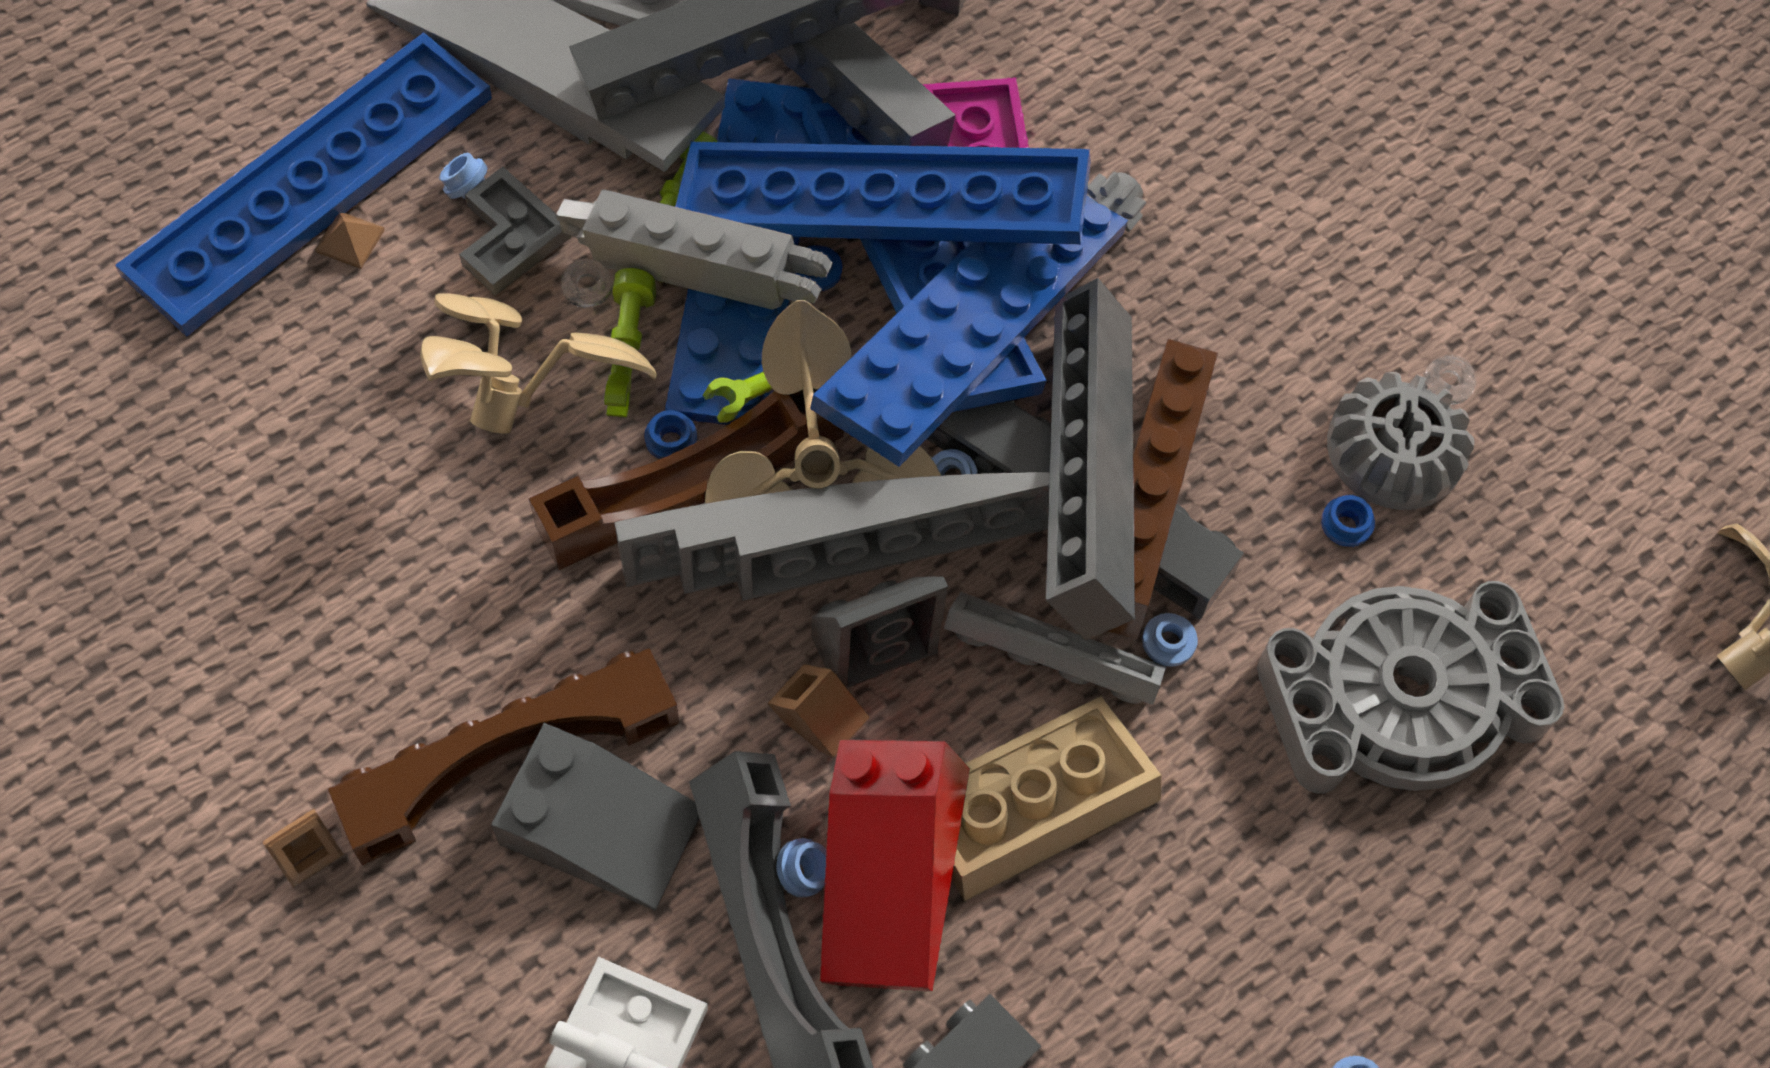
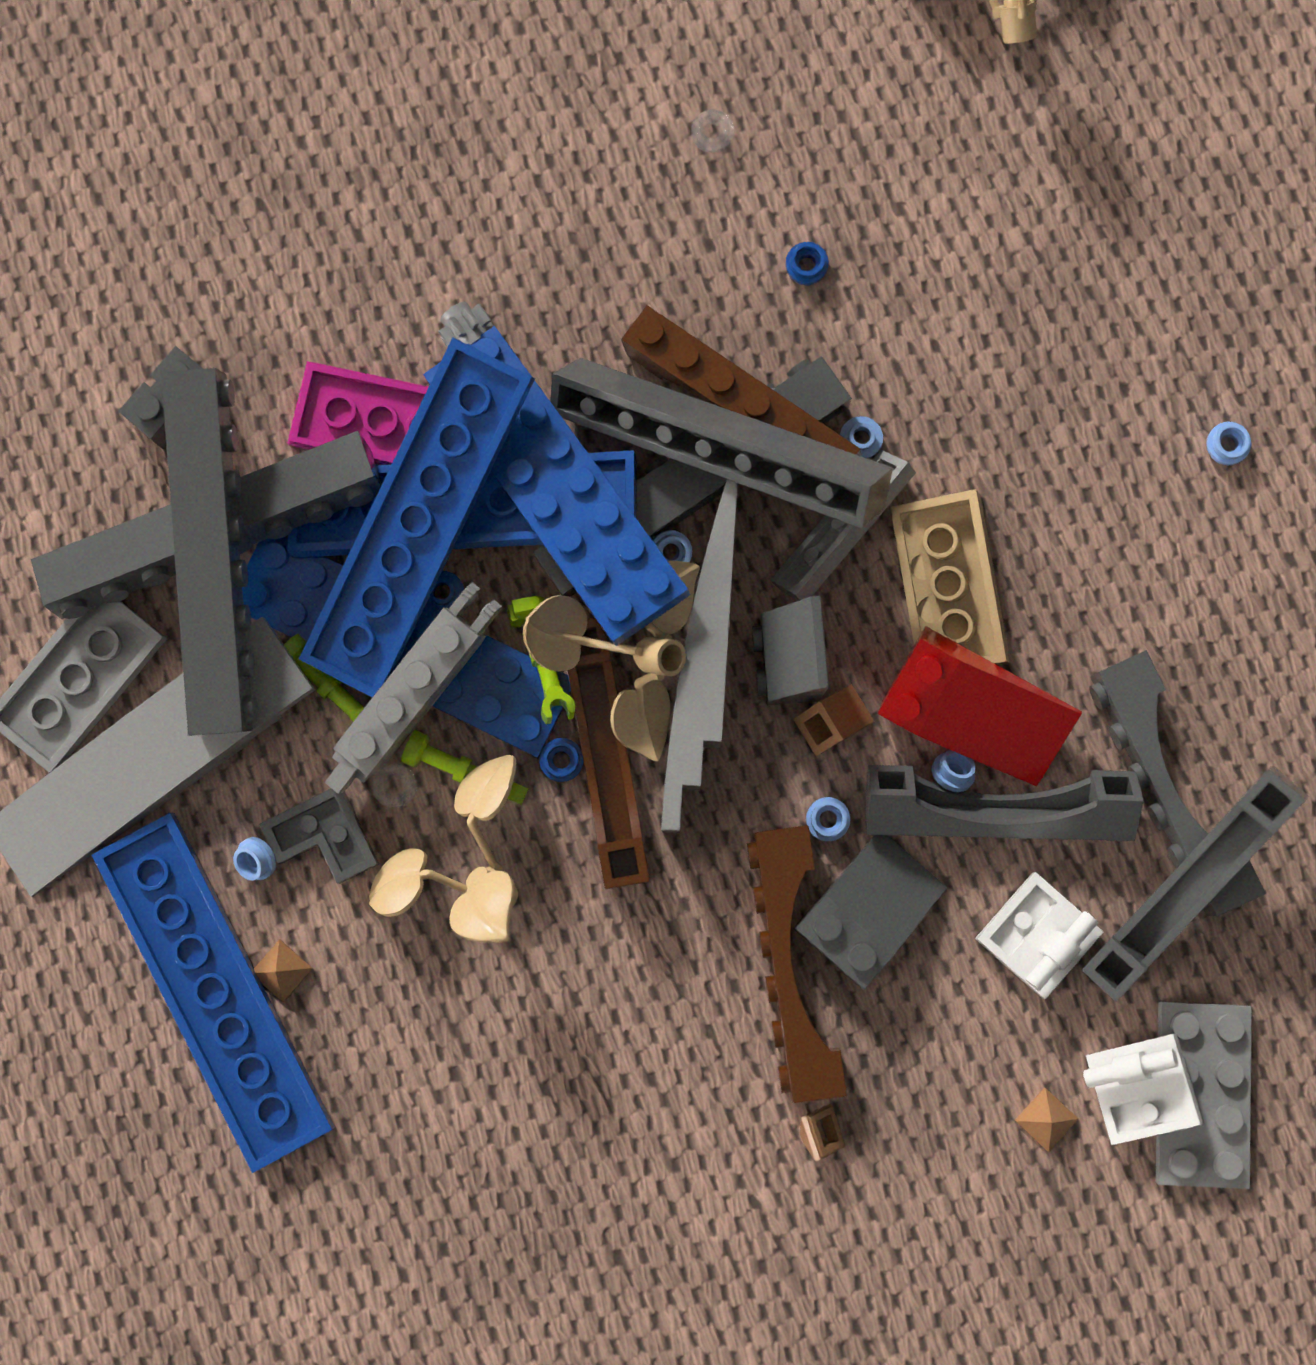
camera: 60 degrees left, 20 degrees up
(695, 725) = (842, 819): none -> light blue plate
(1377, 727) = (991, 250): light grey piece -> none
(1379, 464) = (761, 220): light grey gear -> none

